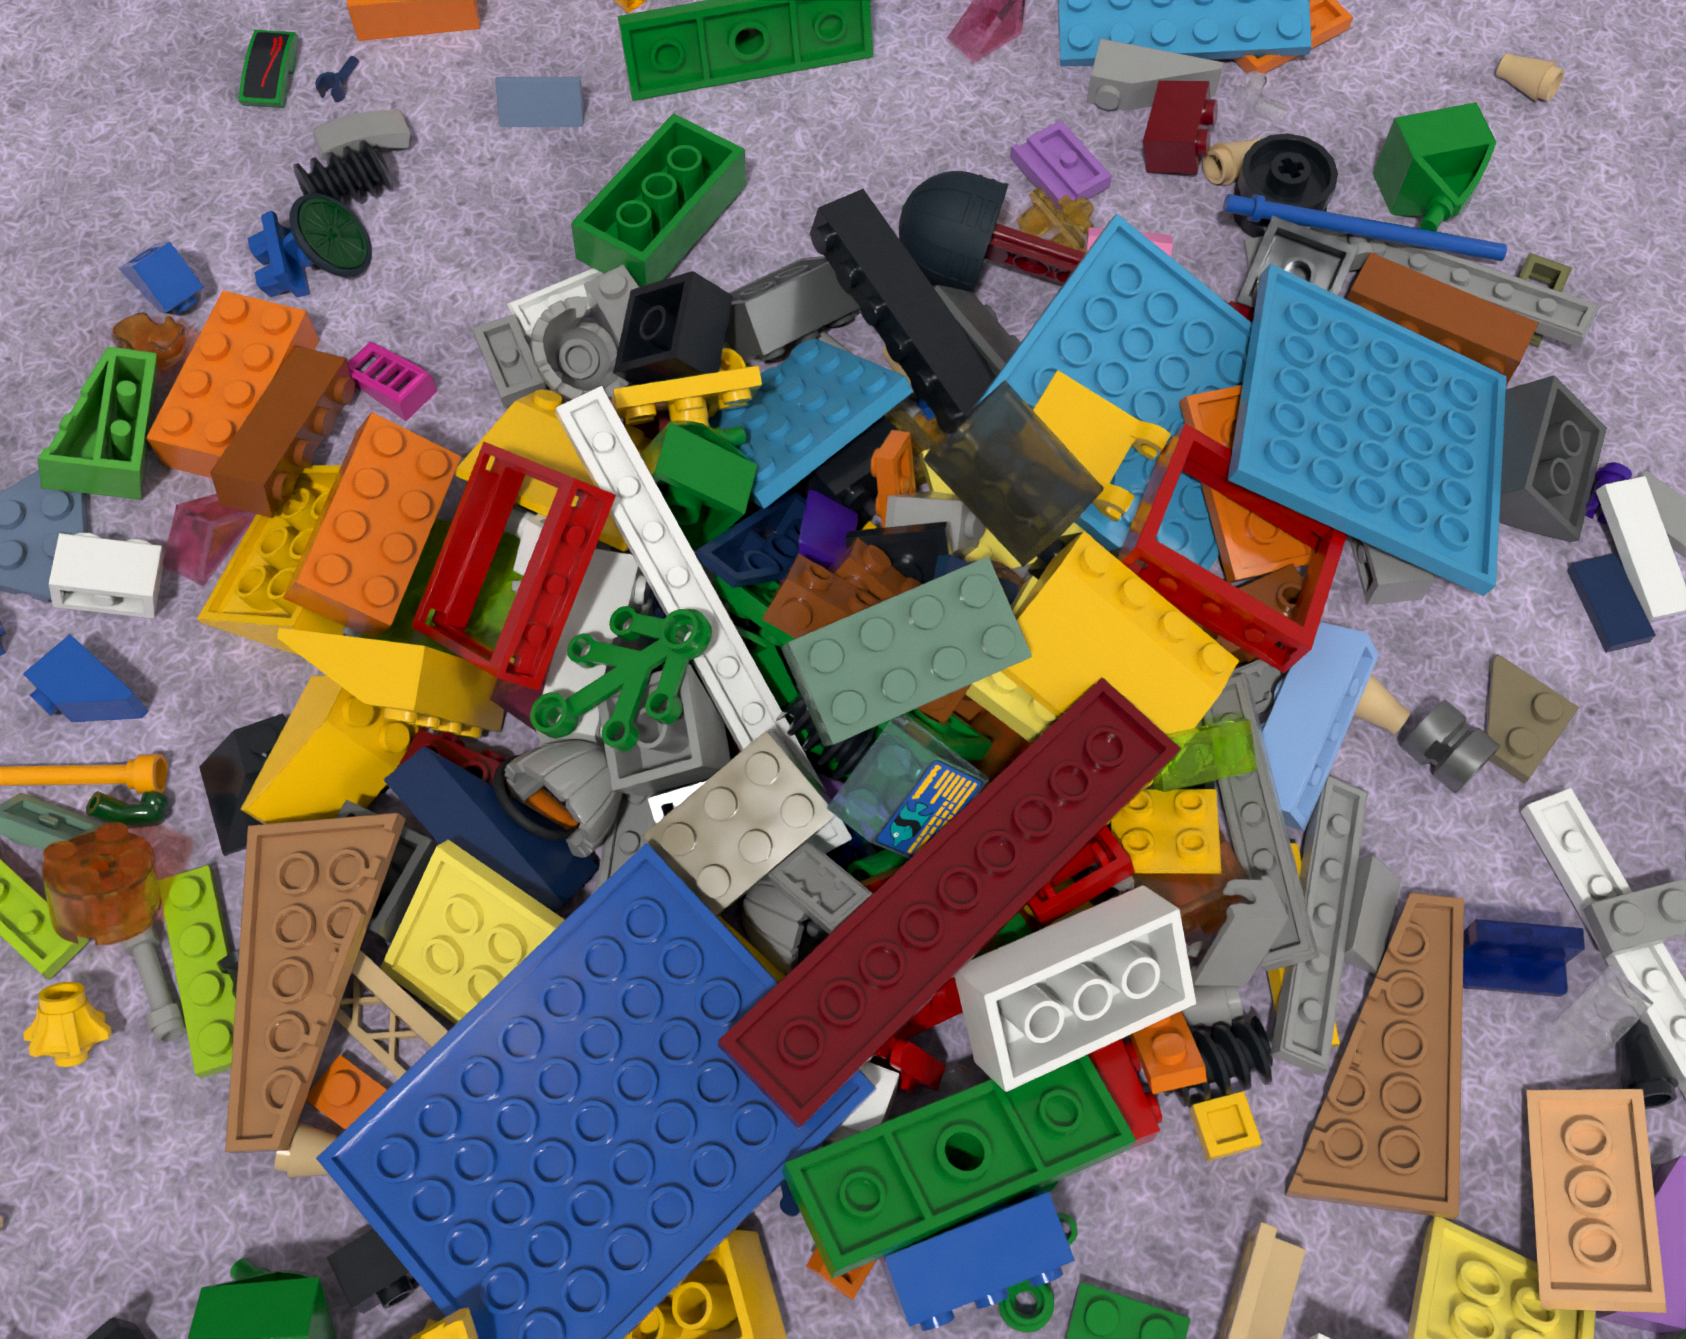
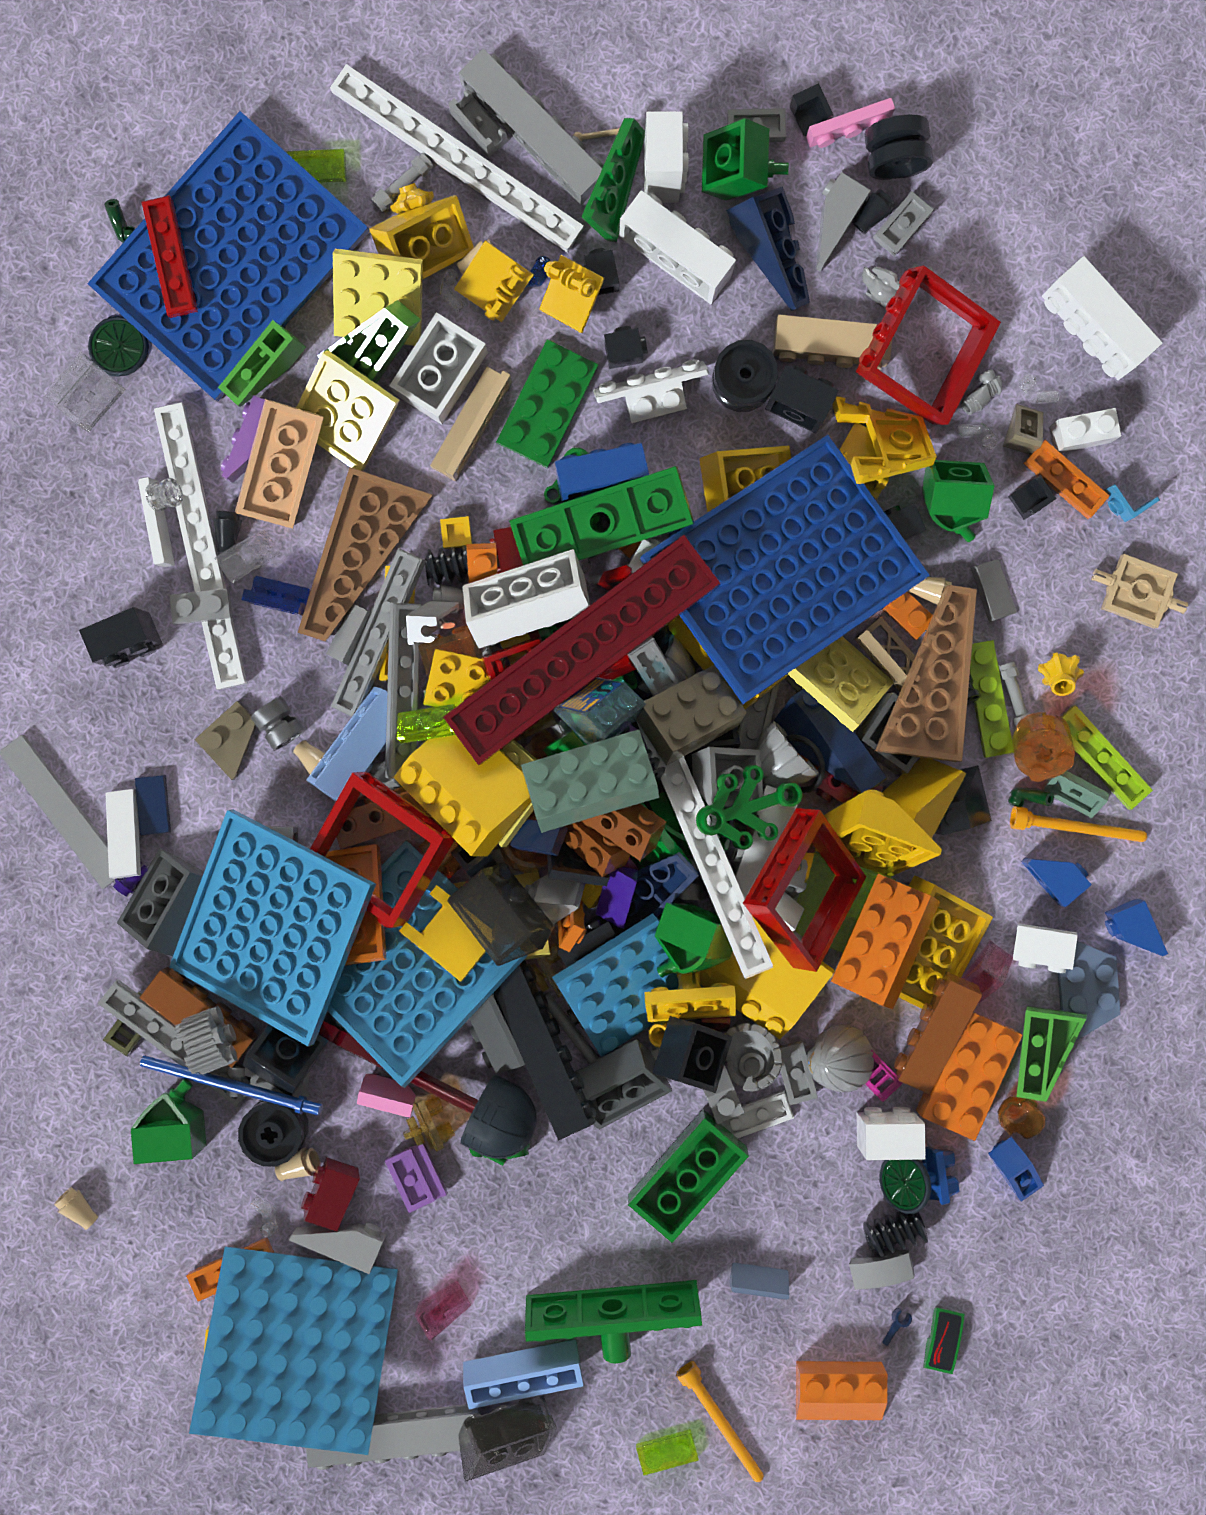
camera: 175 degrees left, 25 degrees up
(194, 1170) = (993, 590): none -> light grey slope
(354, 285) = (890, 1134): none -> white brick
(440, 378) = (841, 1059): none -> light grey hair
(1422, 259) = (206, 1041): none -> light grey brick

